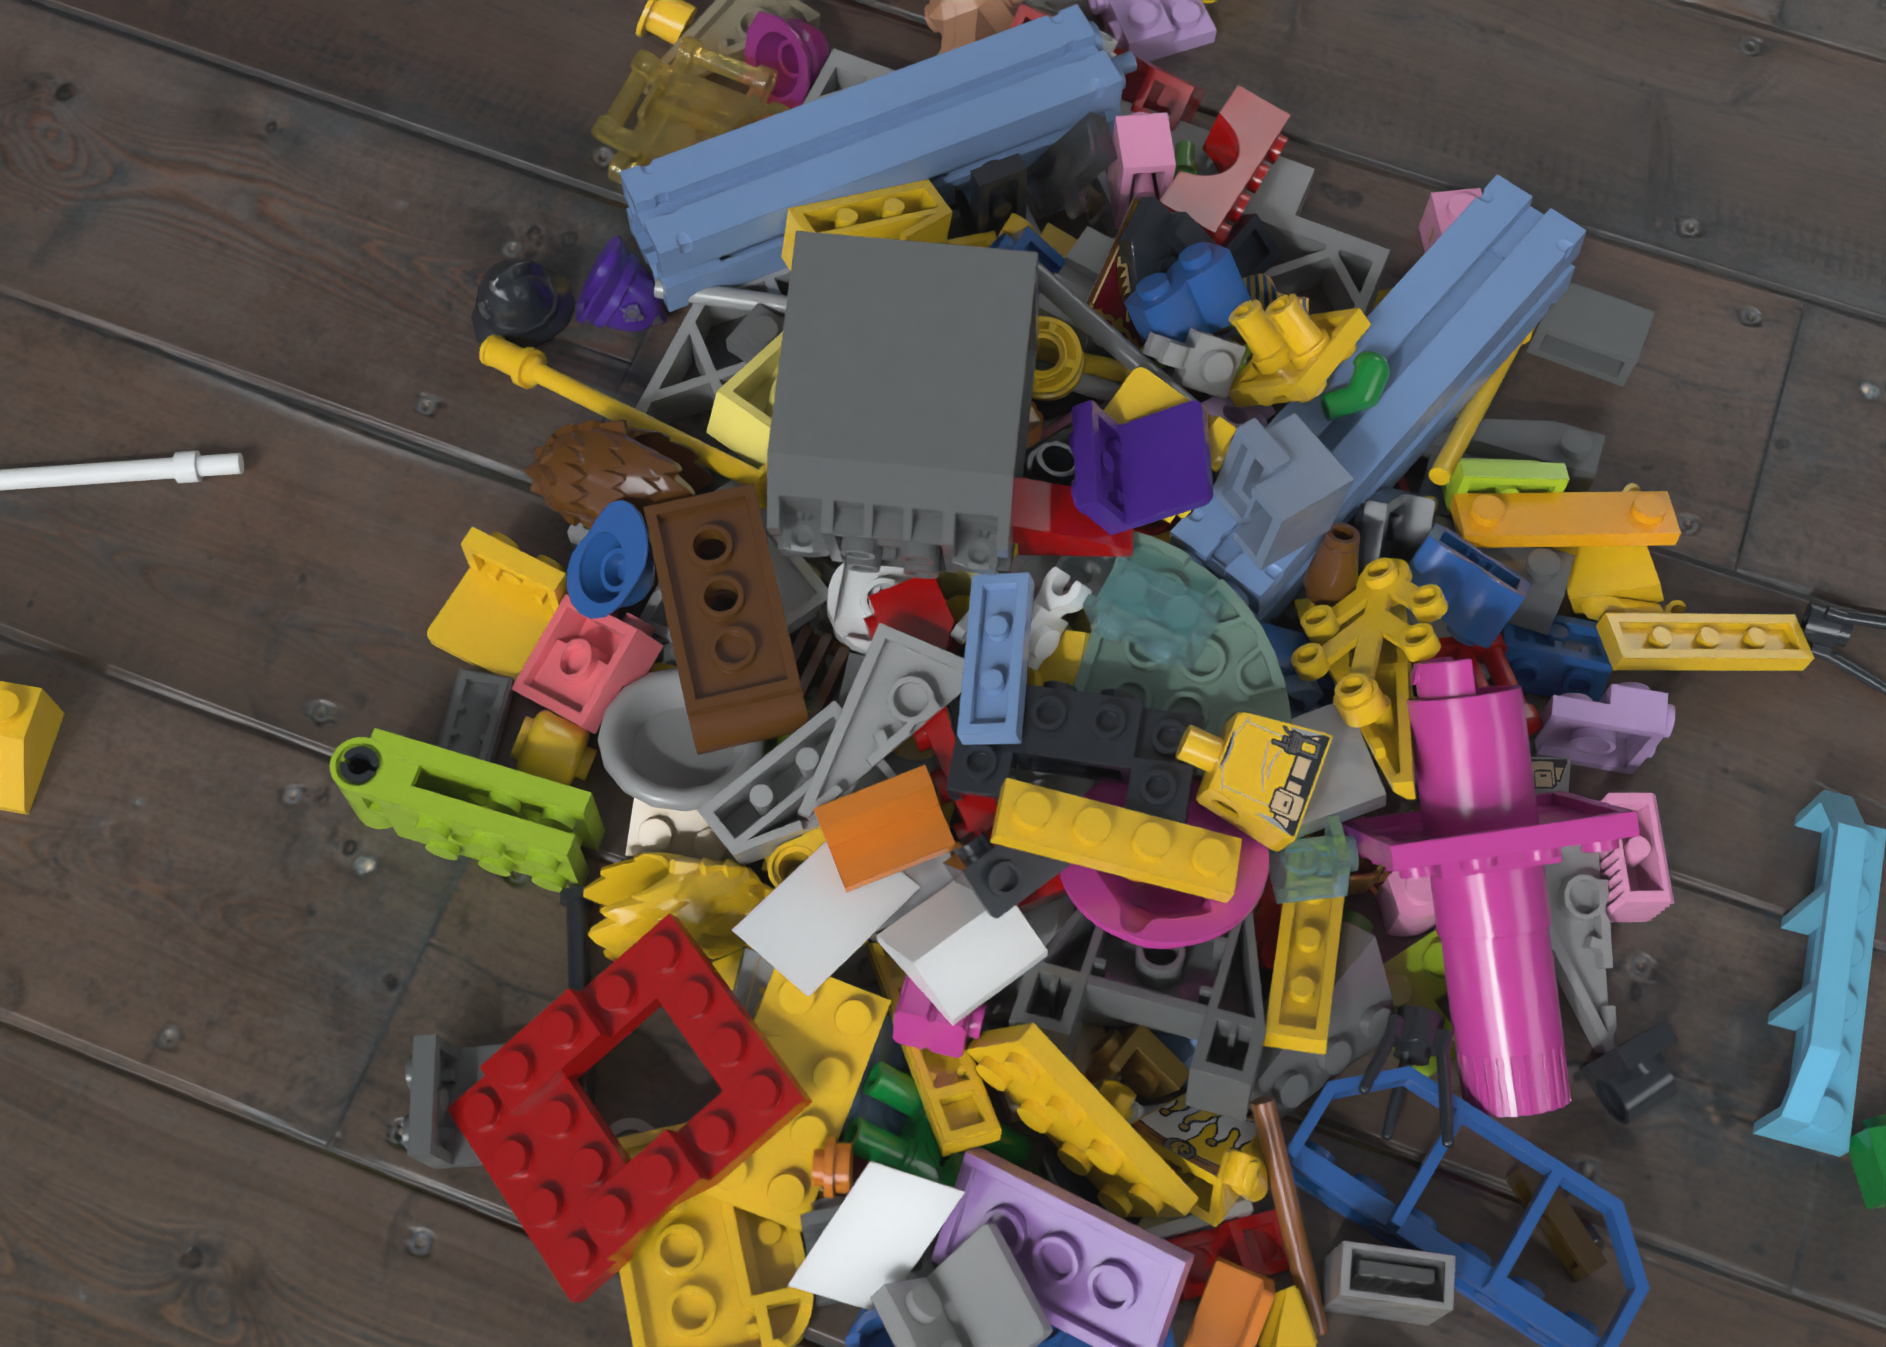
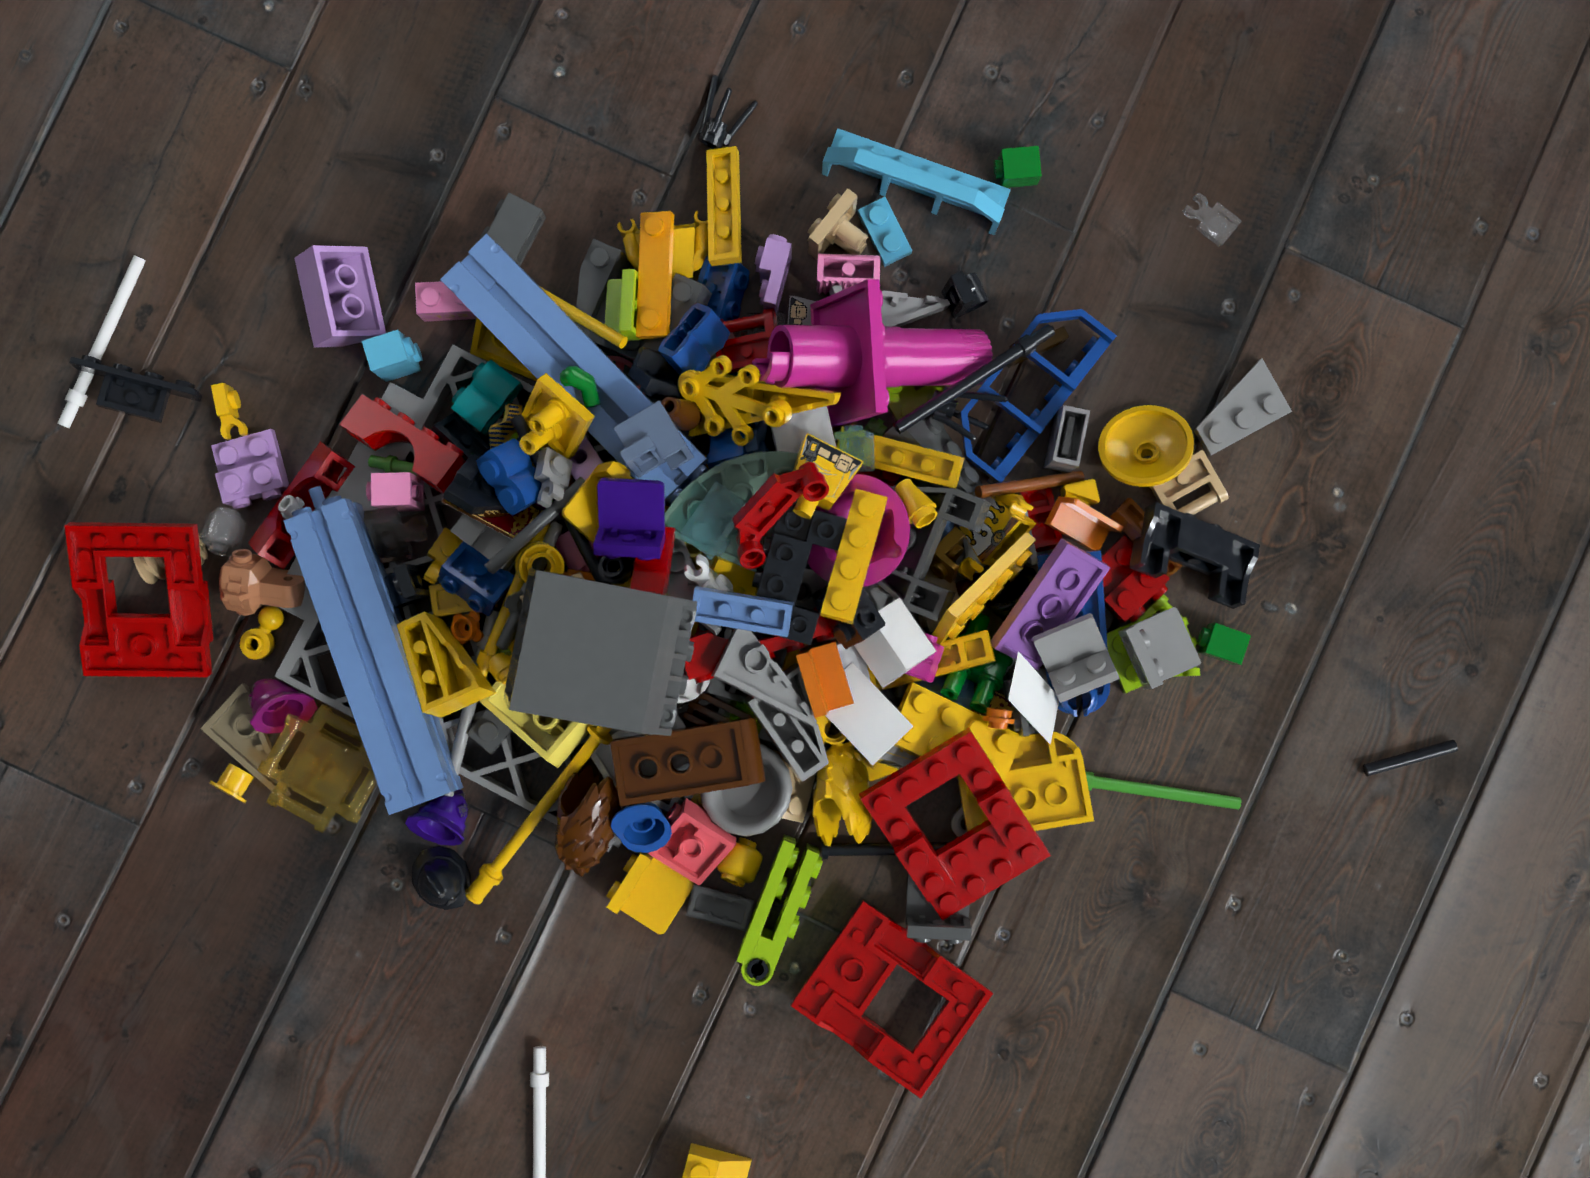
camera: 85 degrees left, 20 degrees up
(348, 954) = (856, 971): none -> red piece
(885, 39) = (270, 619): none -> yellow plate
(1191, 674) = (770, 504): none -> red plate
(1223, 963) = (919, 507): none -> yellow cone
(1306, 272) = (486, 396): none -> teal brick
(1357, 167) = (392, 355): none -> medium azure brick
(1439, 104) = (339, 295): none -> lavender slope
(1554, 1171) = (1023, 347): none -> black bar
(1712, 827) = (837, 228): none -> tan plate
(1716, 928) = (884, 231): none -> medium azure plate

